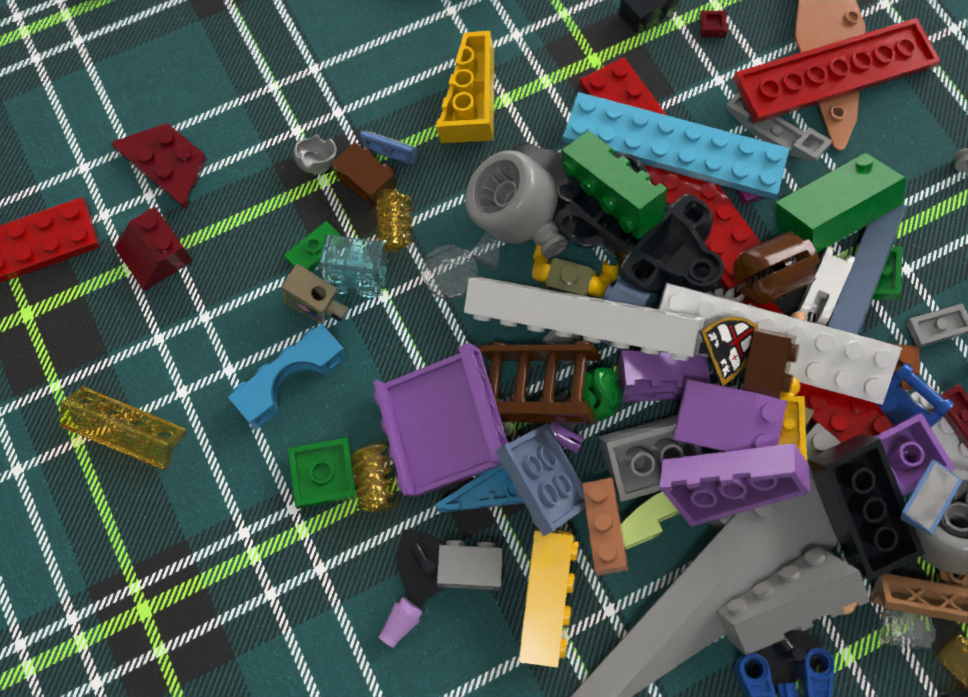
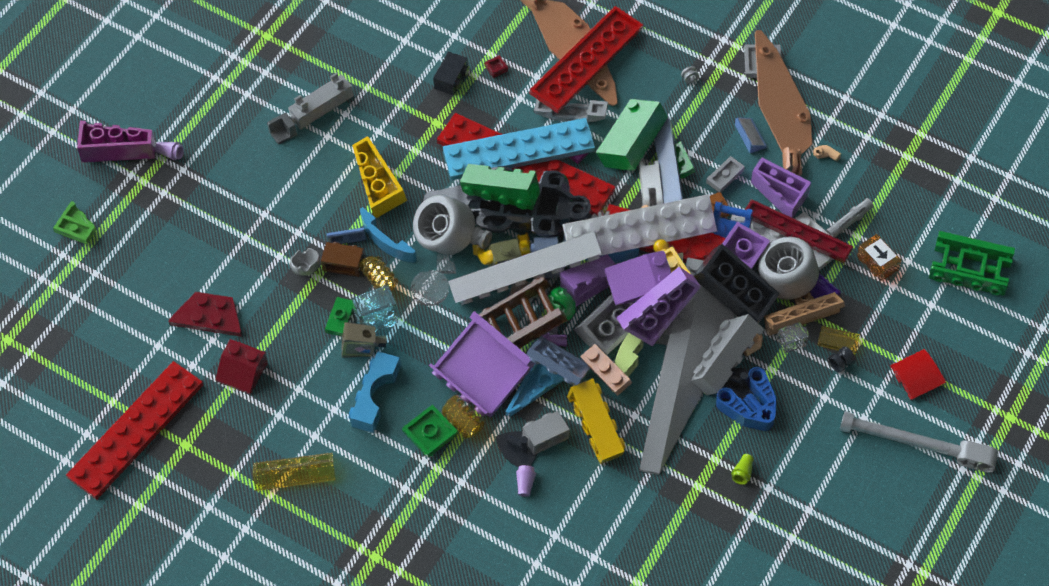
camera: 30 degrees left, 10 degrees down
(441, 200) = (400, 251): none -> dark azure slope
(728, 345) = (617, 238): shield -> none
(770, 363) = (644, 236): reddish brown brick -> none
(786, 275) = (624, 189): reddish brown cylinder -> none
(931, 498) = (764, 260): flat silver slope -> none

